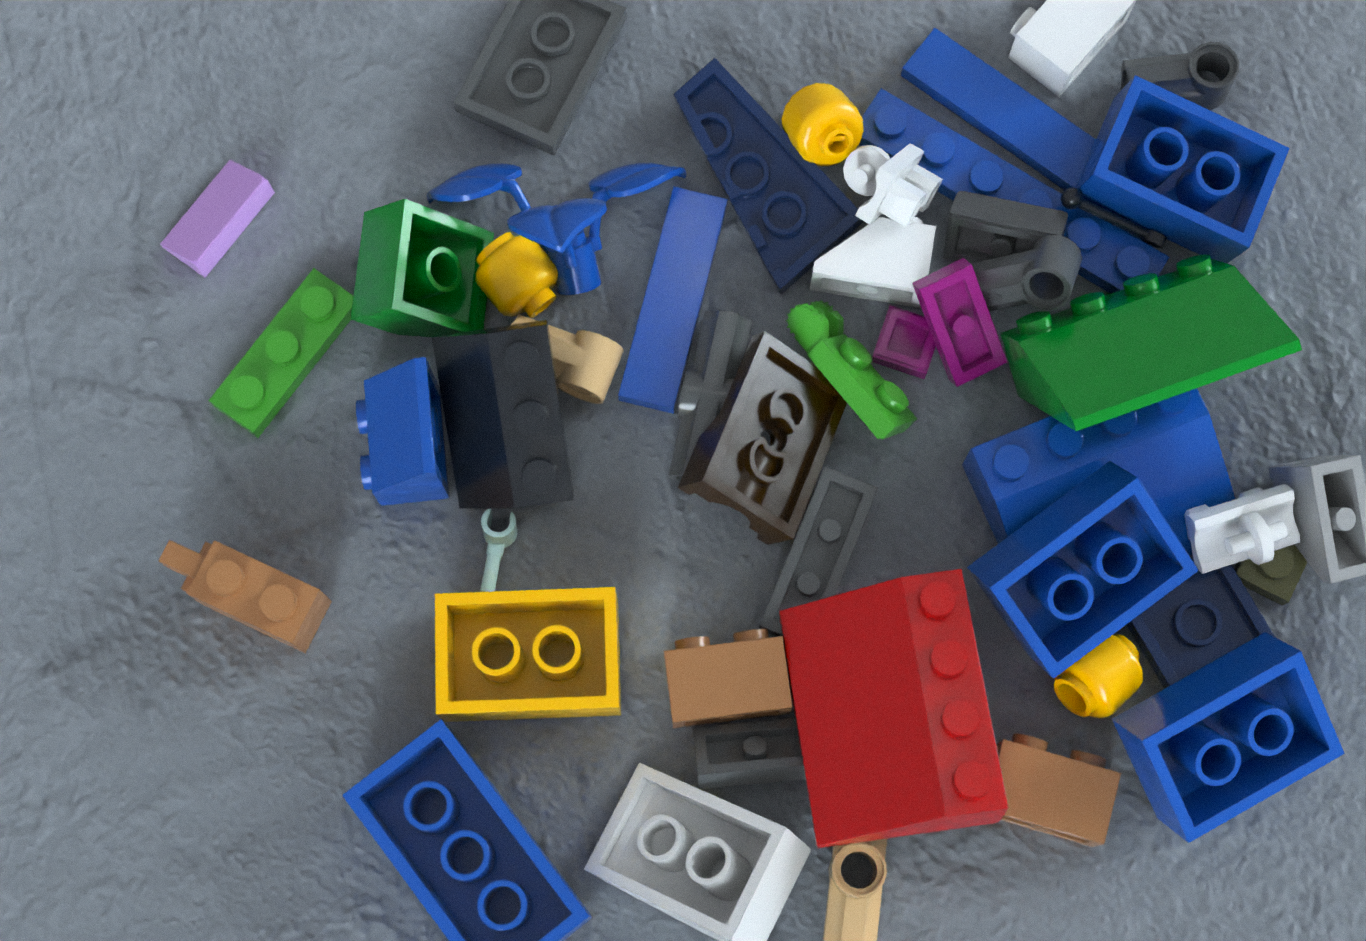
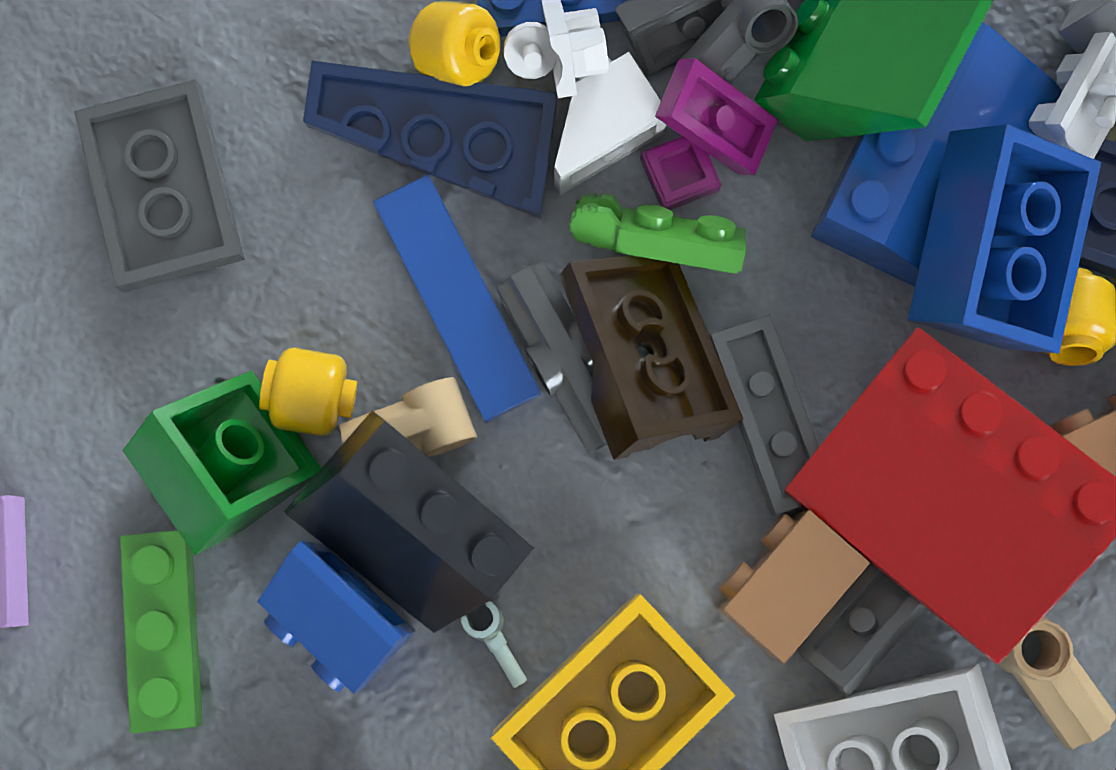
camera: 45 degrees left, 5 degrees up
(560, 226) = (317, 325): blue plant -> none

